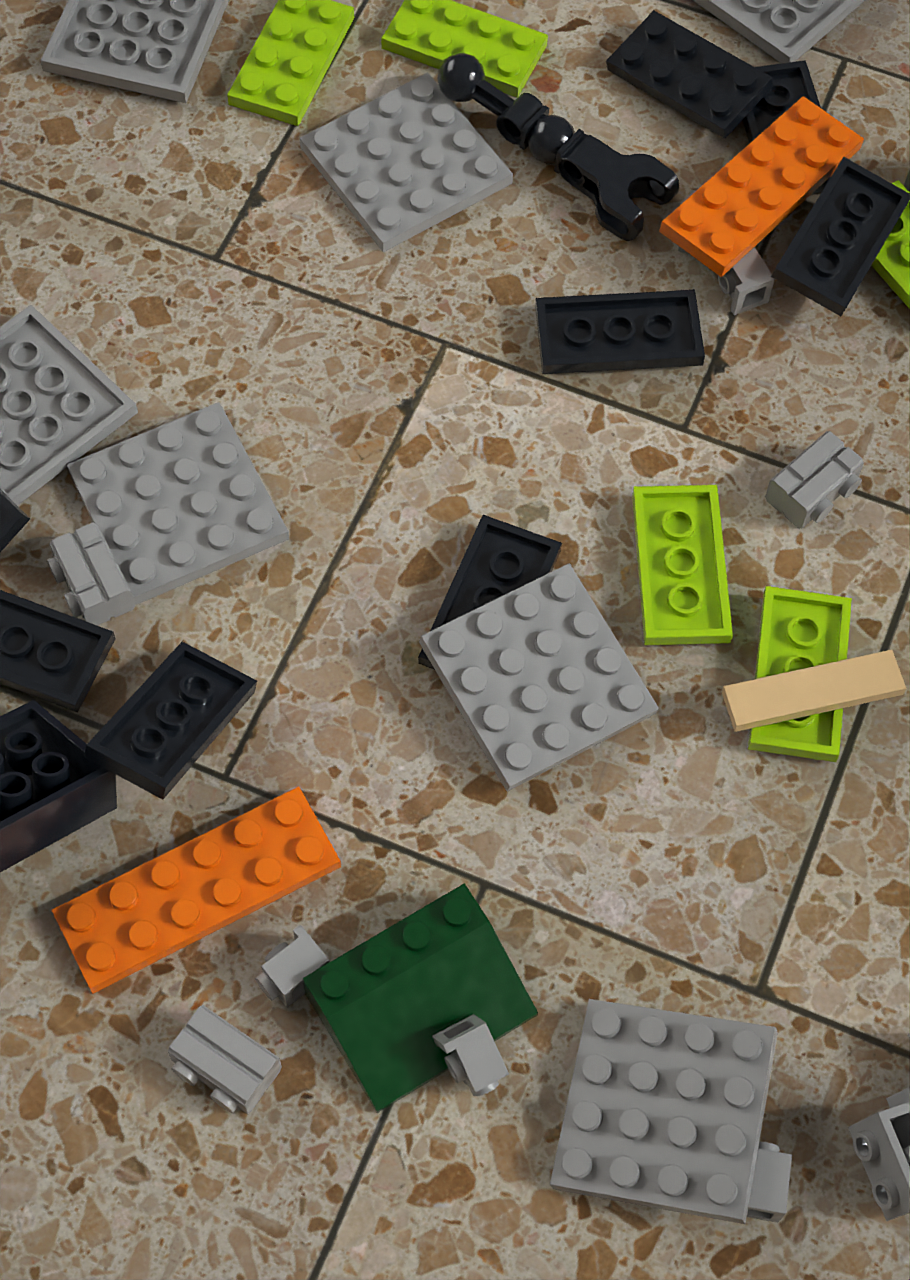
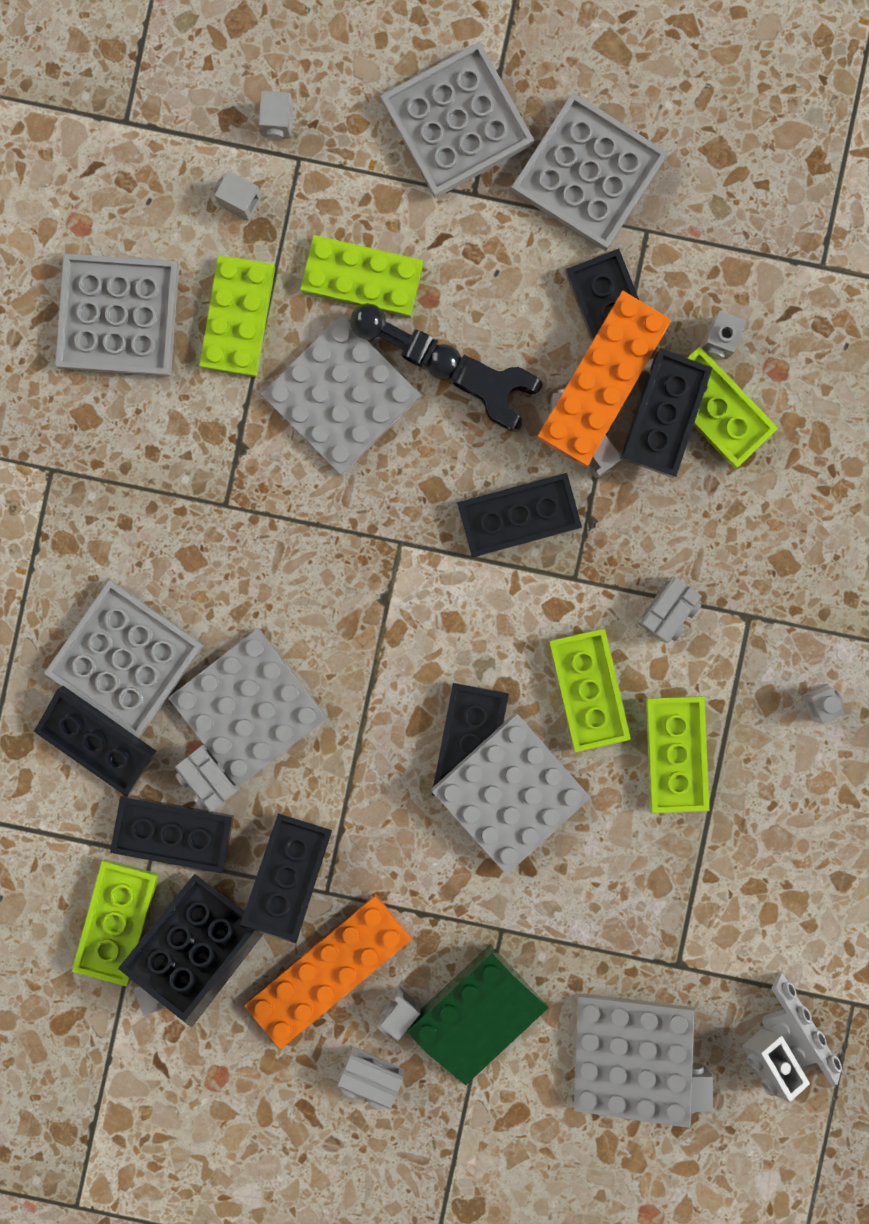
camera: 10 degrees left, 25 degrees up
(472, 1055) = (514, 1049): light grey brick -> none
(689, 74) = (534, 278): black plate -> none
(813, 690) = (688, 772): tan tile -> none

